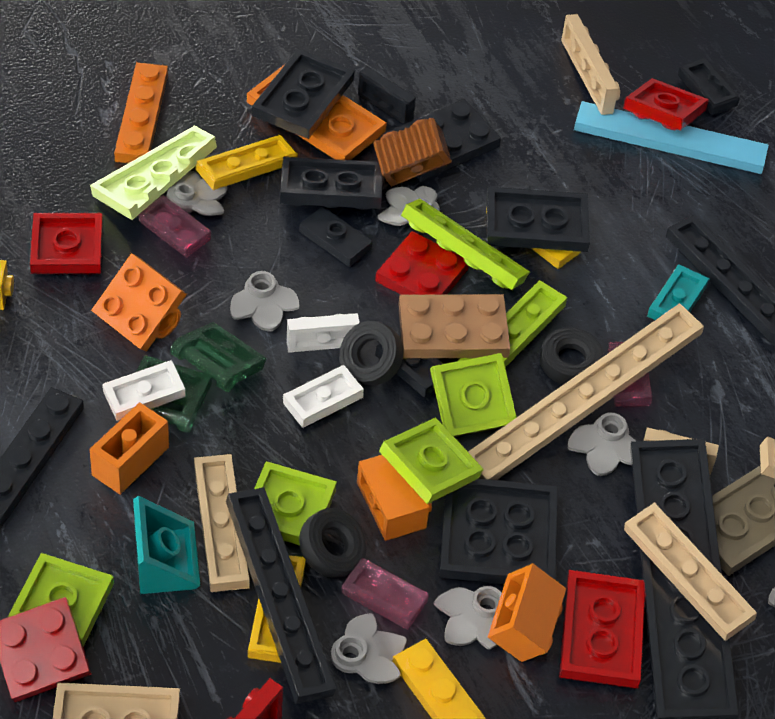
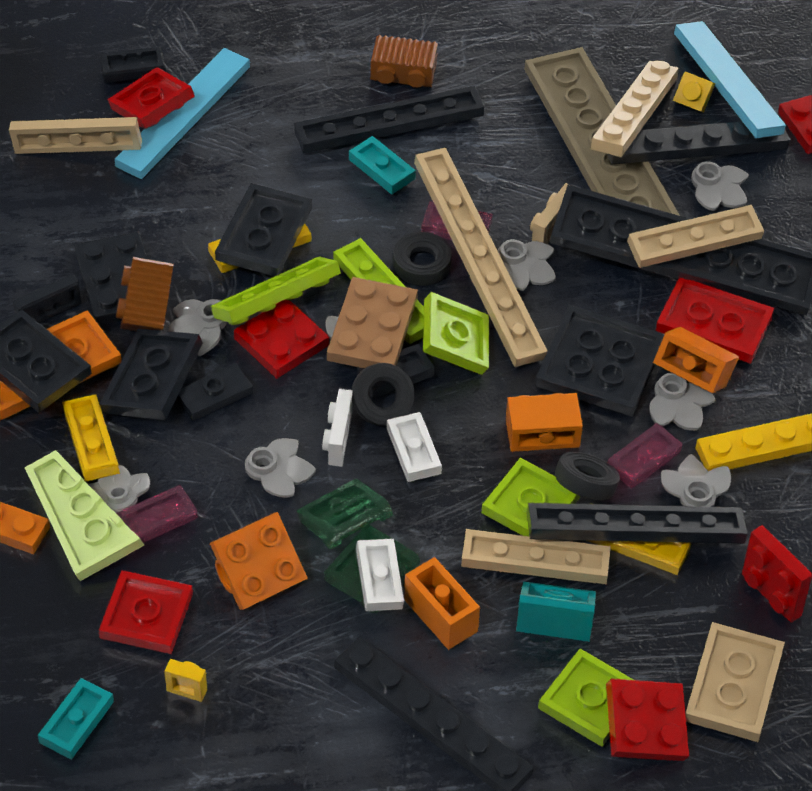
camera: 70 degrees left, 0 degrees up
(431, 460) = (532, 375): lime plate -> none

